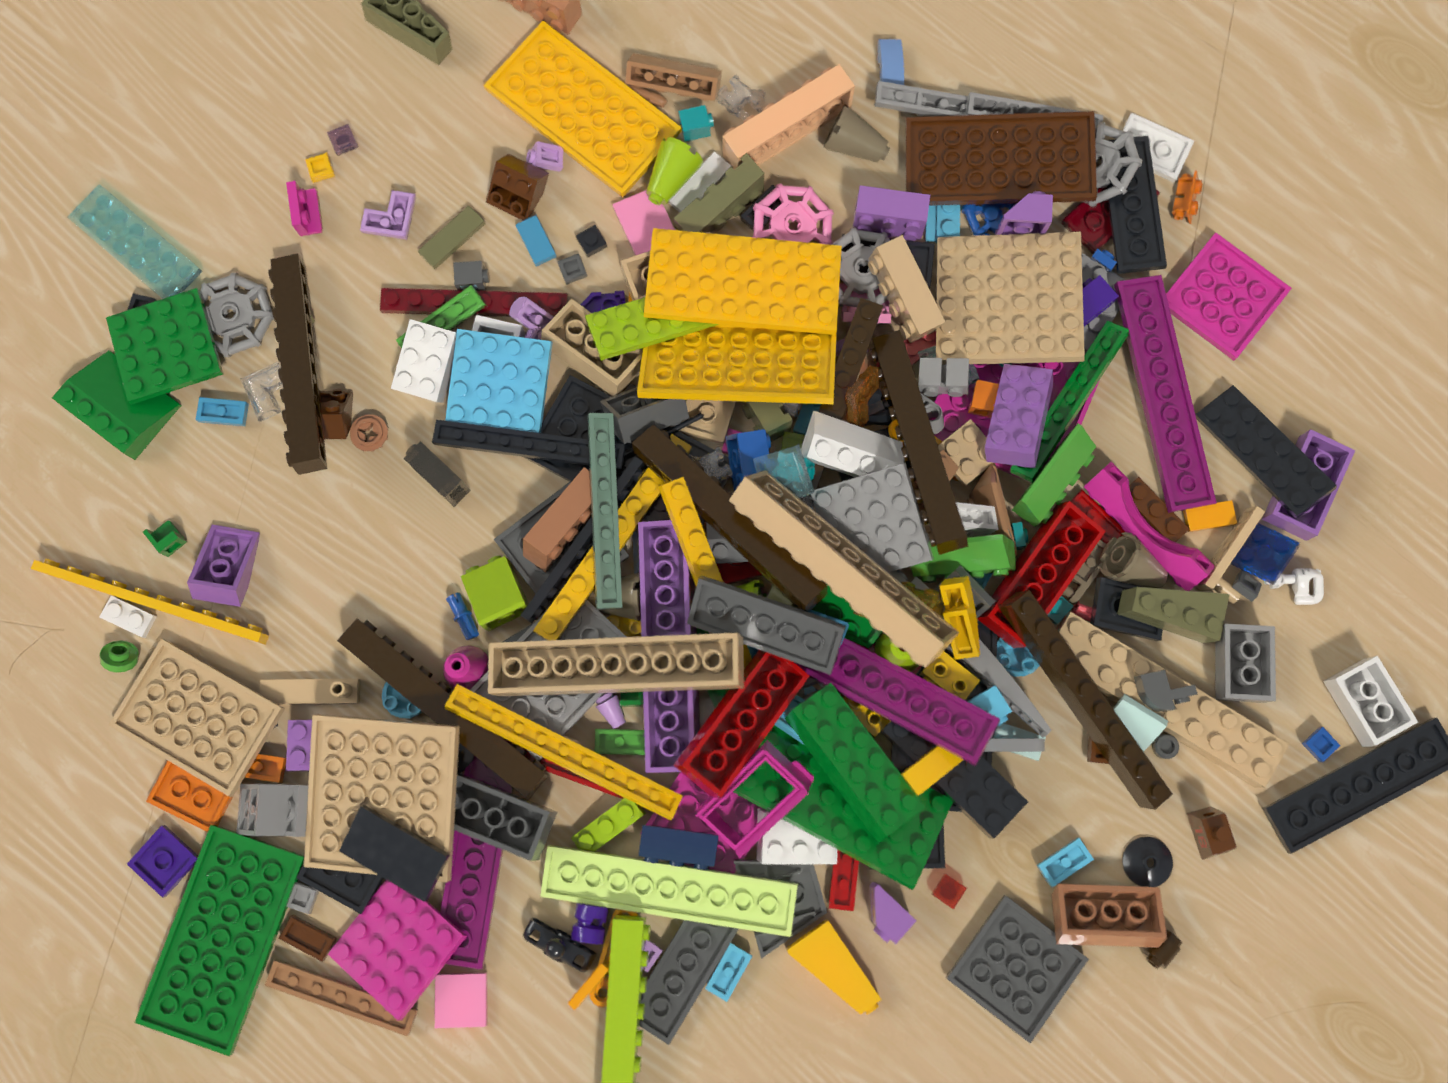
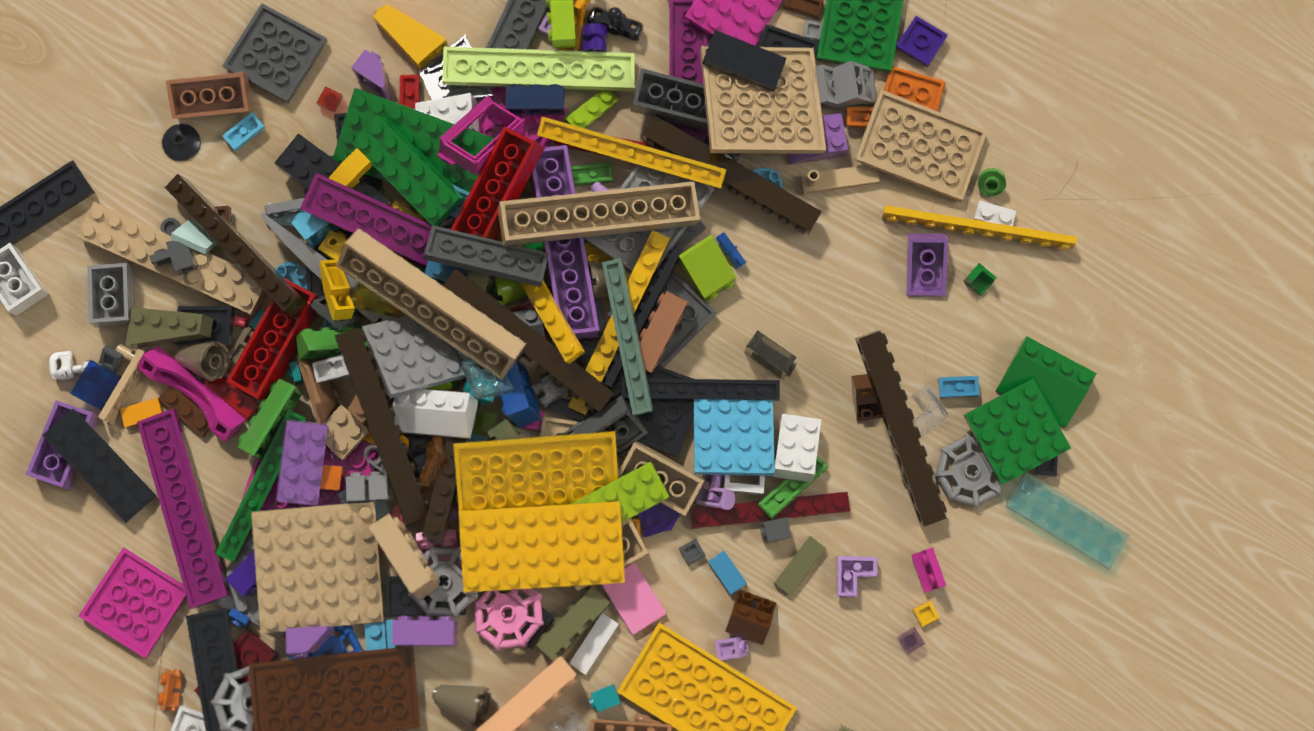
camera: 170 degrees right, 0 degrees up
(364, 424) = (842, 381): nougat gear -> none
(465, 666) = (720, 211): dark pink cone -> none
(591, 241) = (680, 579): black plate -> none
(671, 170) = (619, 644): lime cone -> none
(728, 972) = (487, 21): medium azure plate -> none
(1165, 953) = (166, 74): dark brown brick -> none
(1211, 832) = (133, 163): reddish brown torso -> none
(1321, 744) = (50, 244): blue plate -> none

